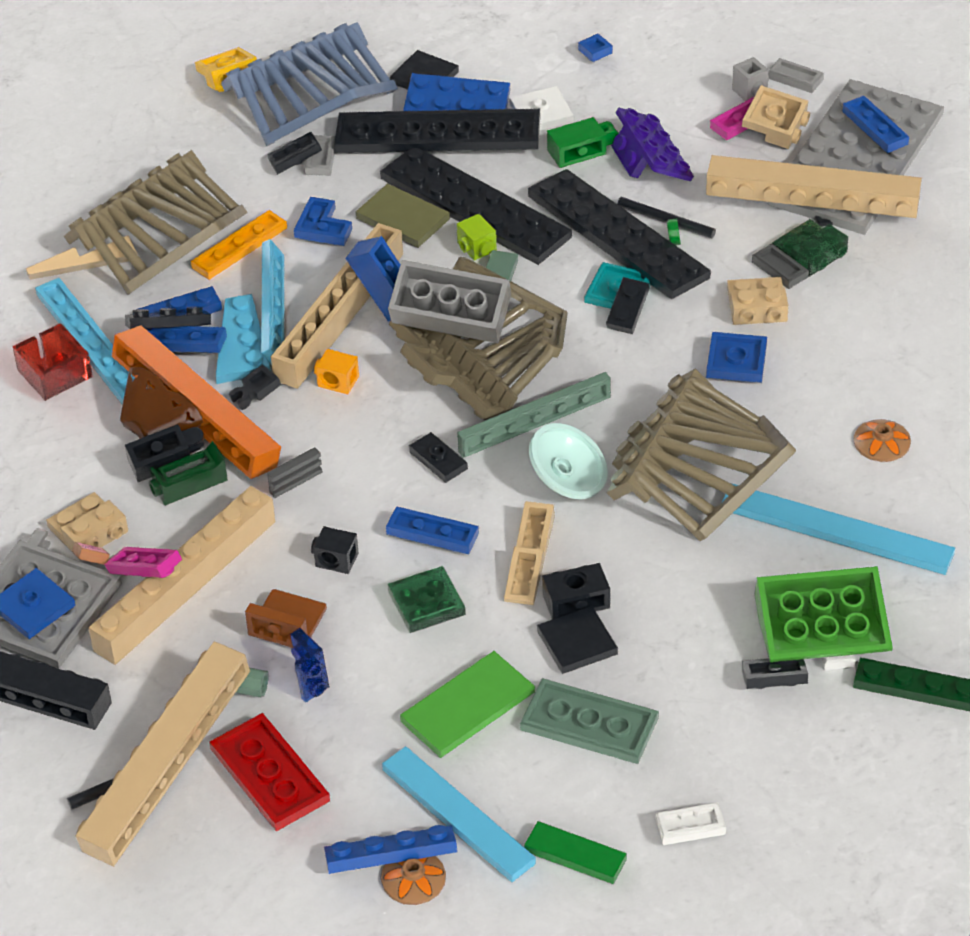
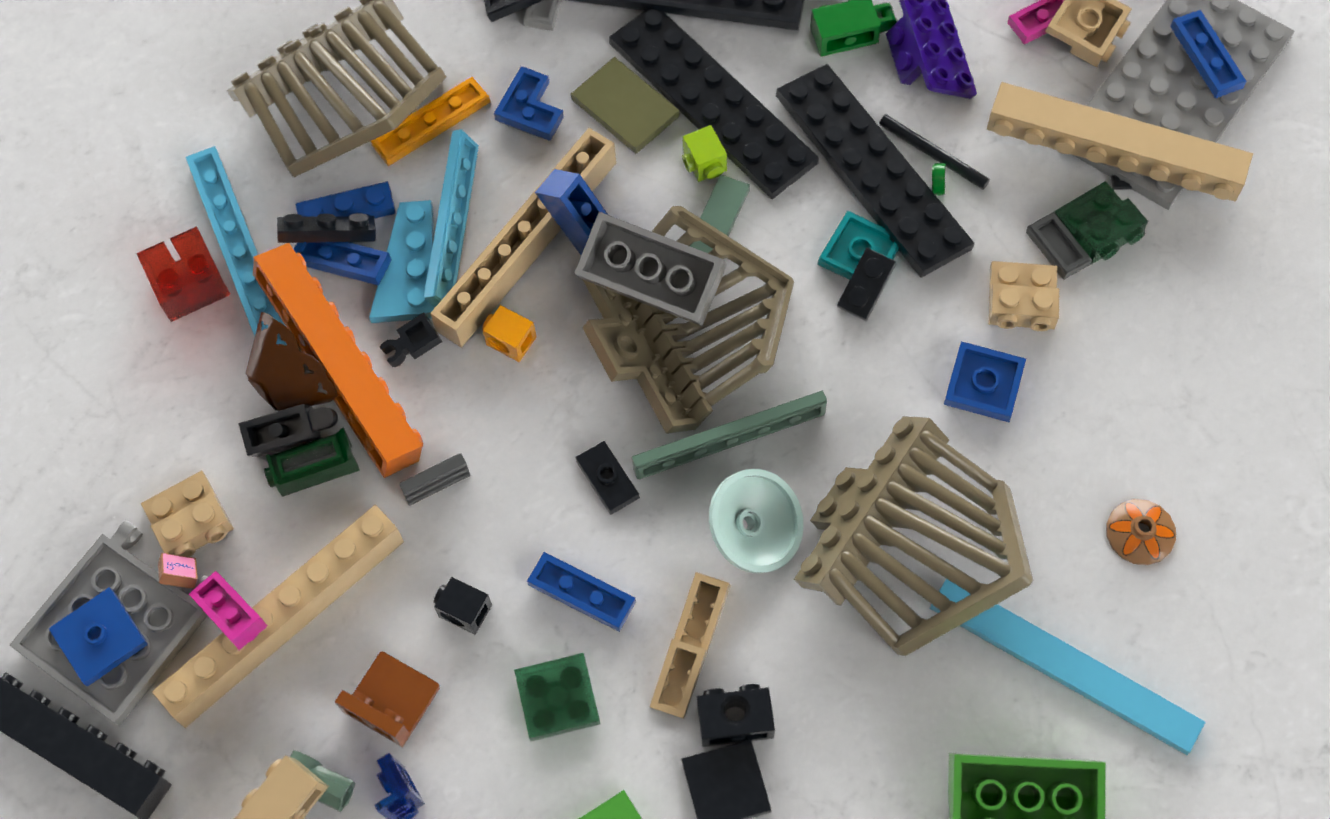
camera: 10 degrees right, 20 degrees up
(71, 261) = (236, 123): tan slope -> none

